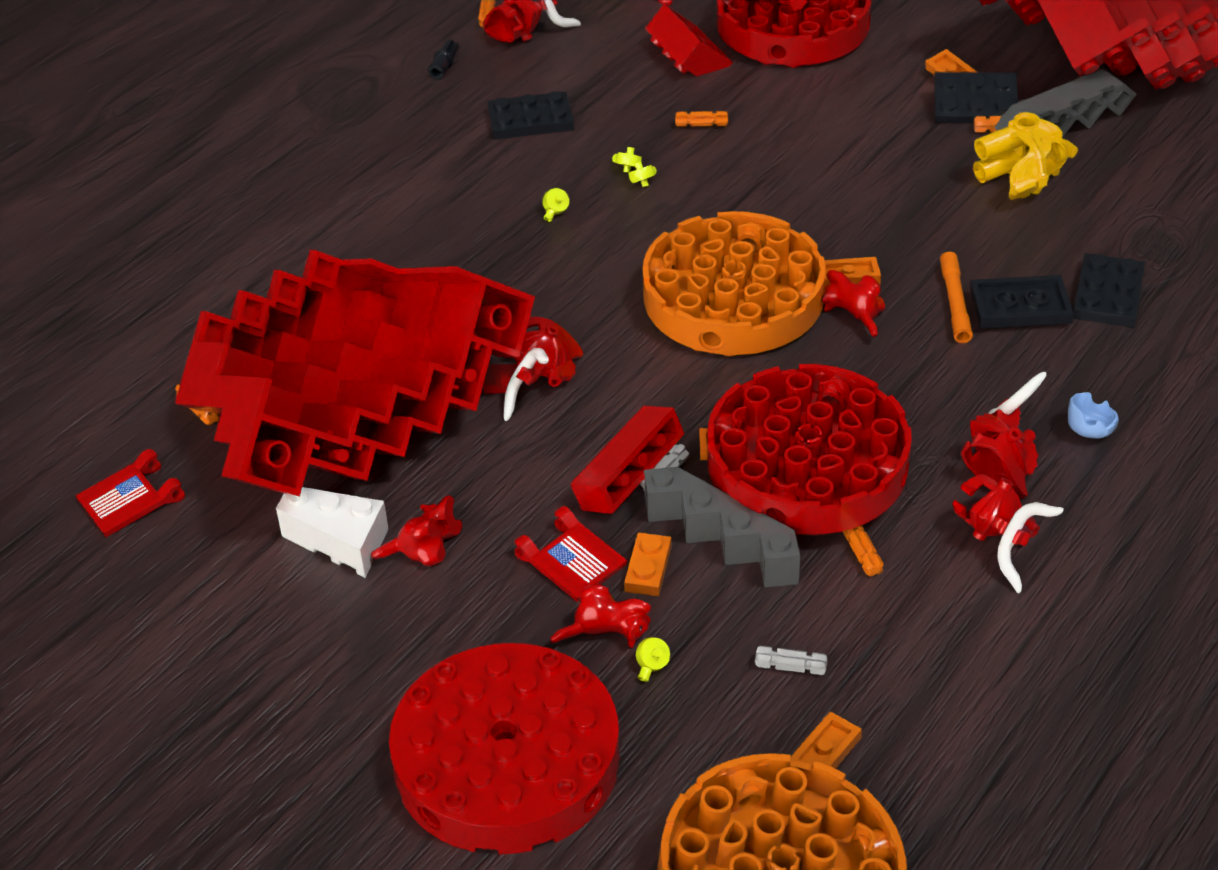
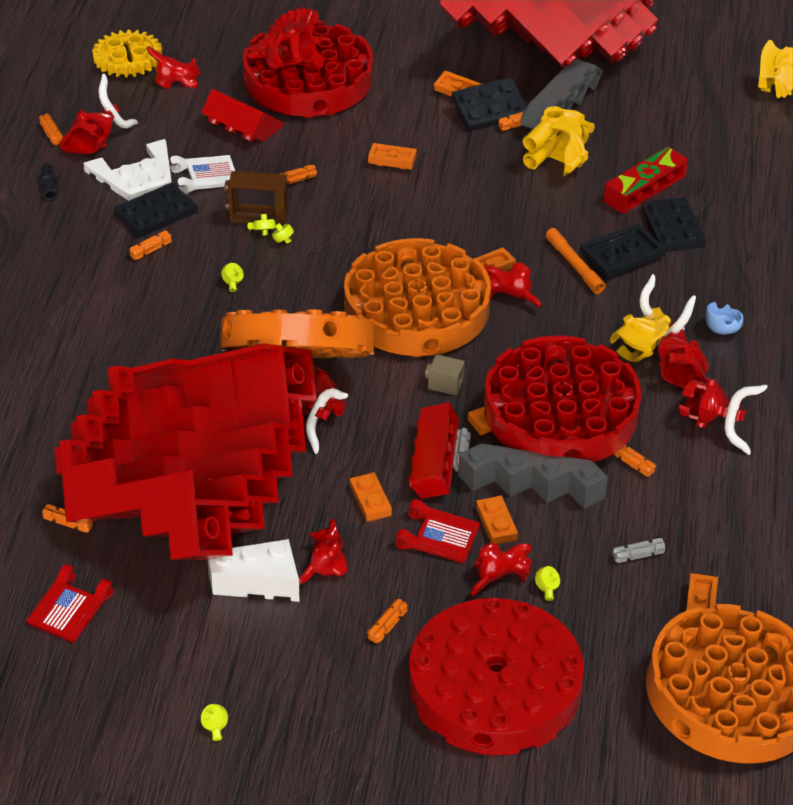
camera: 30 degrees left, 0 degrees up
(169, 675) = (214, 719): none -> neon yellow piece
(437, 635) = (387, 621): none -> orange axle
(496, 149) = (150, 245): none -> orange axle
(525, 488) = (370, 497): none -> orange plate
(540, 77) = (137, 178): none -> white wing
(551, 280) = (312, 330): none -> orange brick
(609, 91) = (204, 172): none -> white flag
(657, 125) = (256, 181): none -> reddish brown window
(706, 378) = (445, 374): none -> dark tan brick
(823, 125) = (392, 156): none -> orange plate
(964, 400) = (644, 331): none -> yellow helmet
(1106, 229) = (645, 180): none -> red brick

